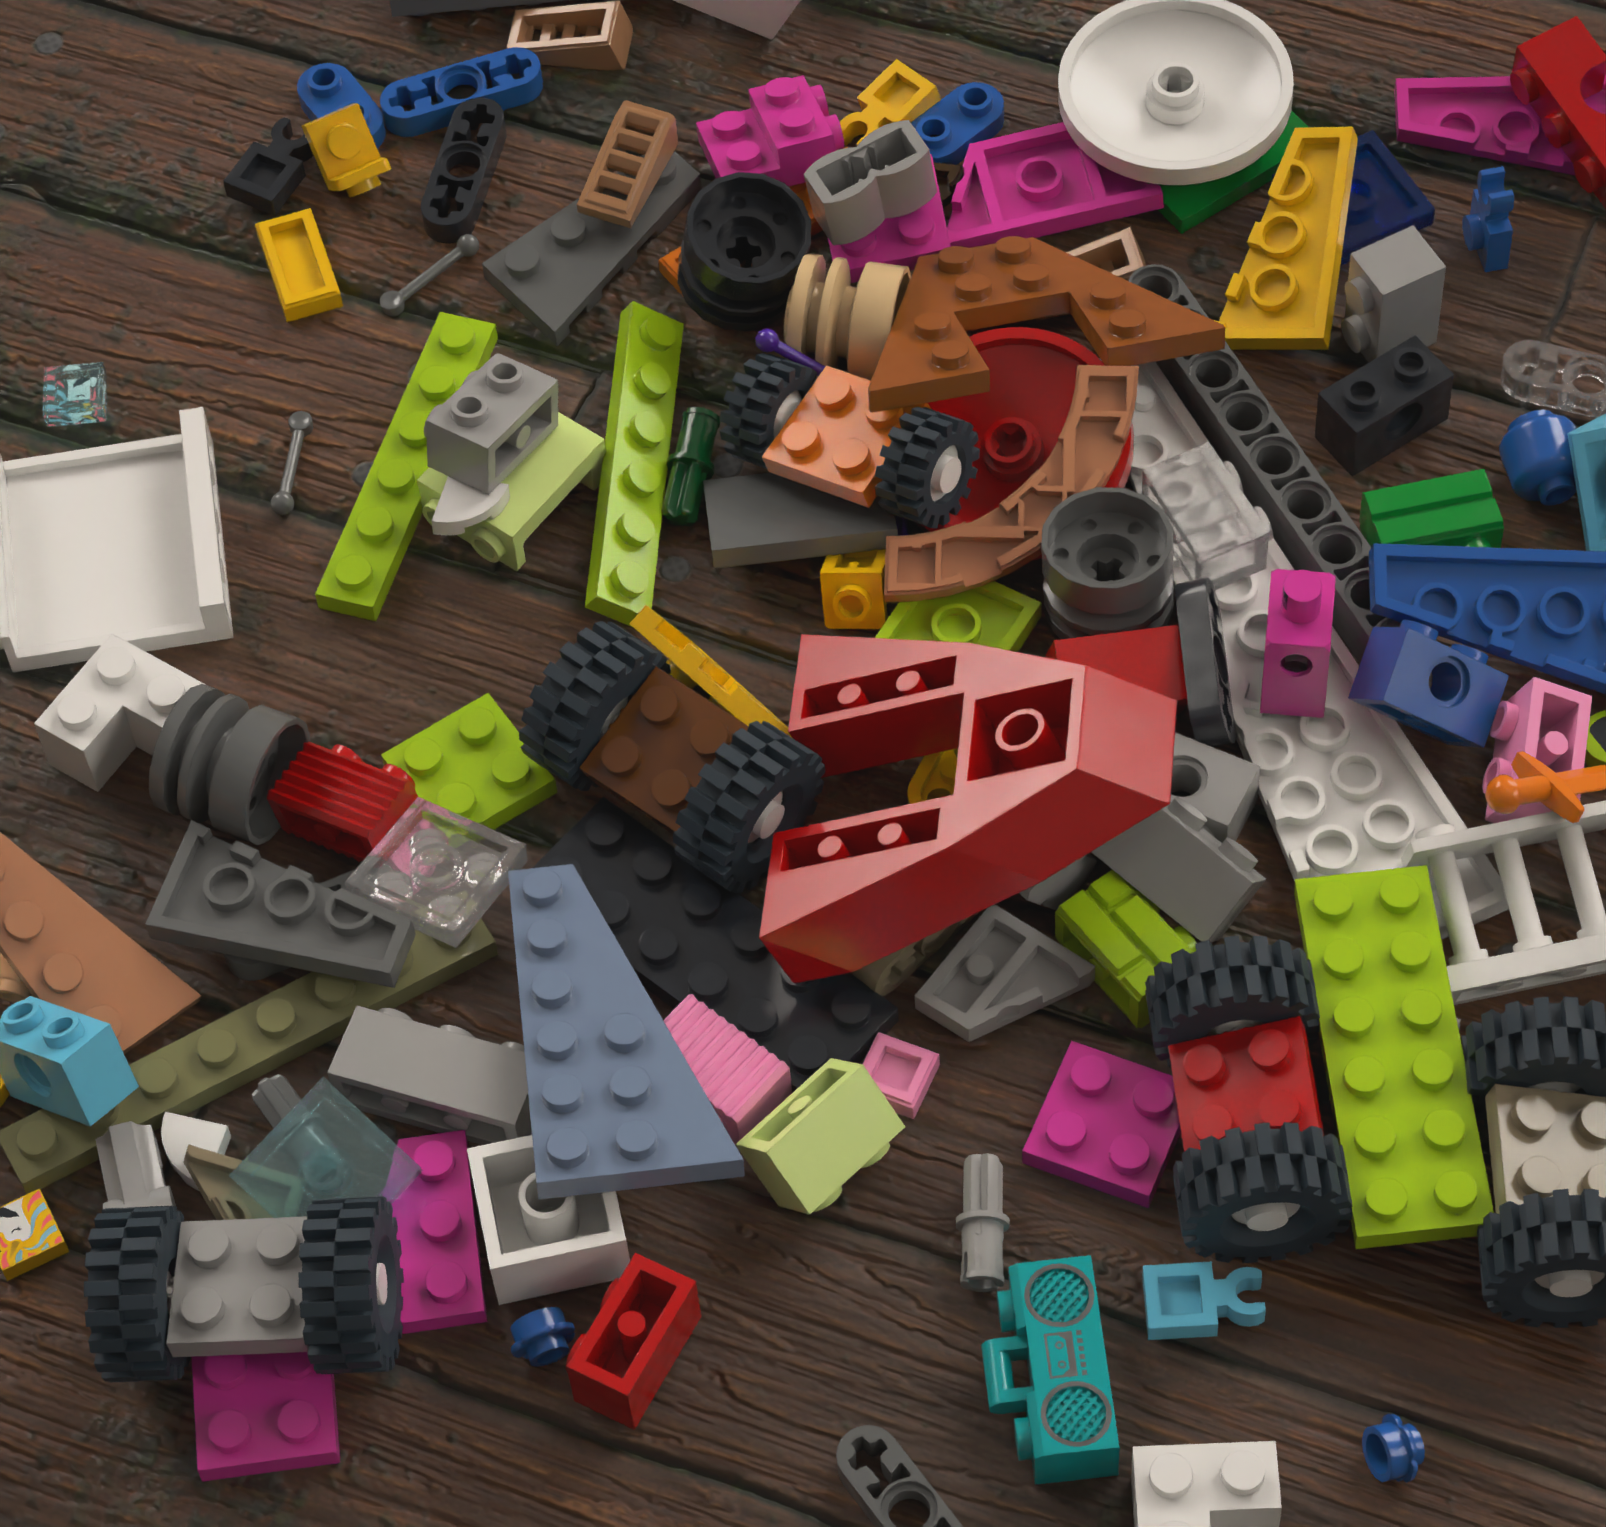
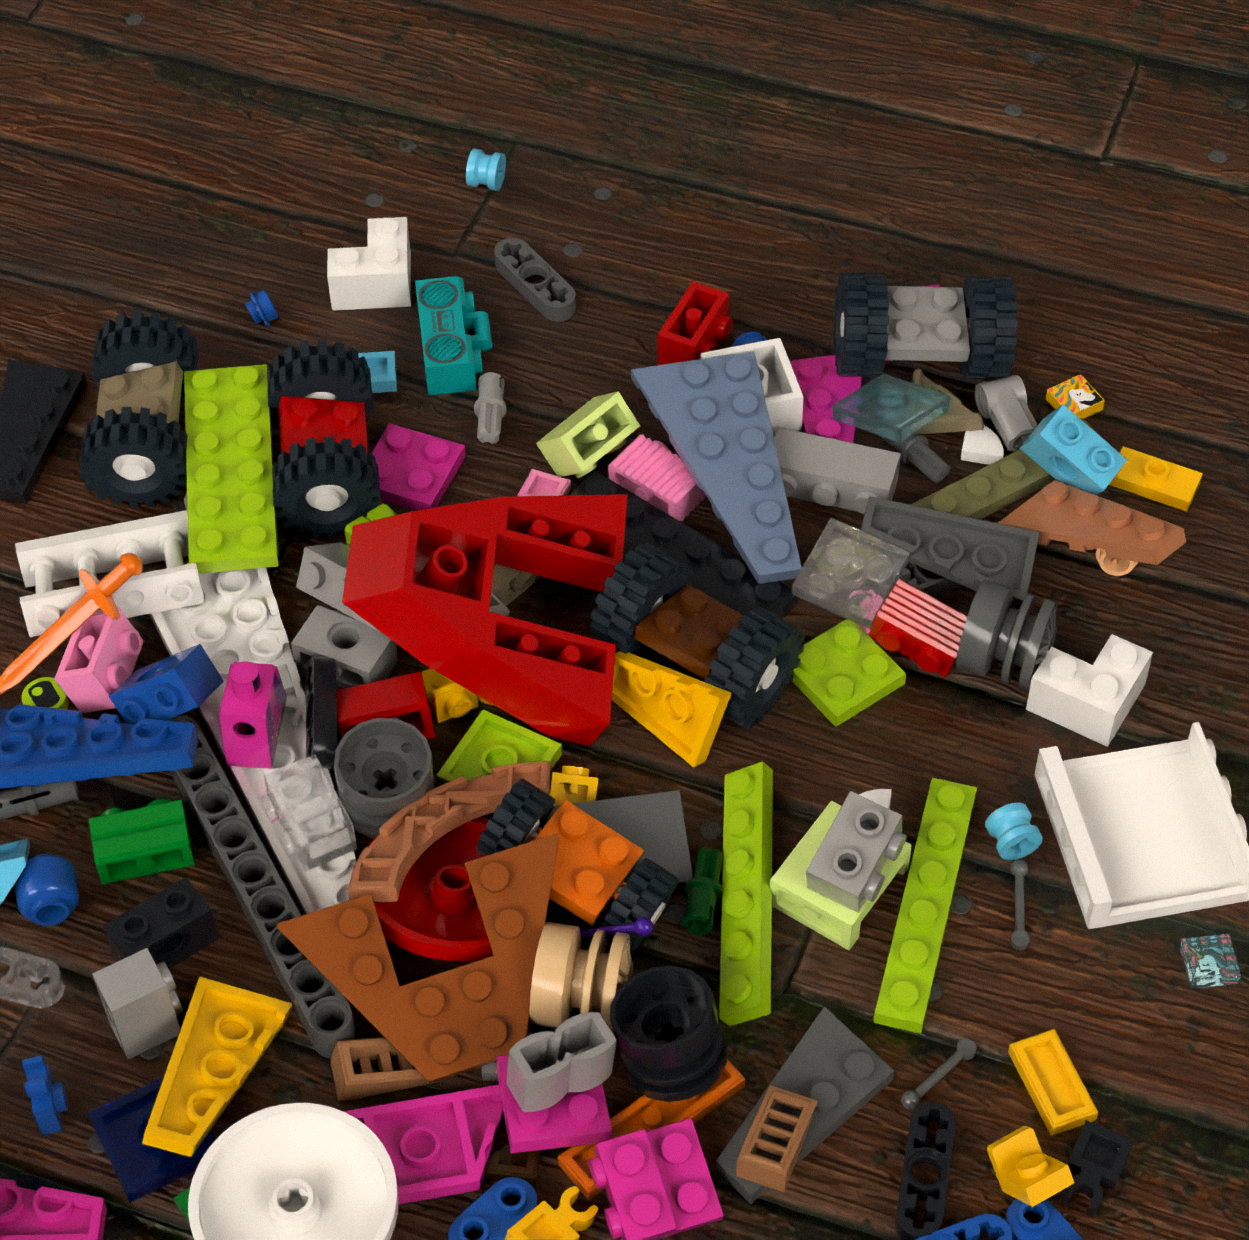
camera: 175 degrees right, 5 degrees down
(280, 530) = (1013, 831): none -> medium azure wheel

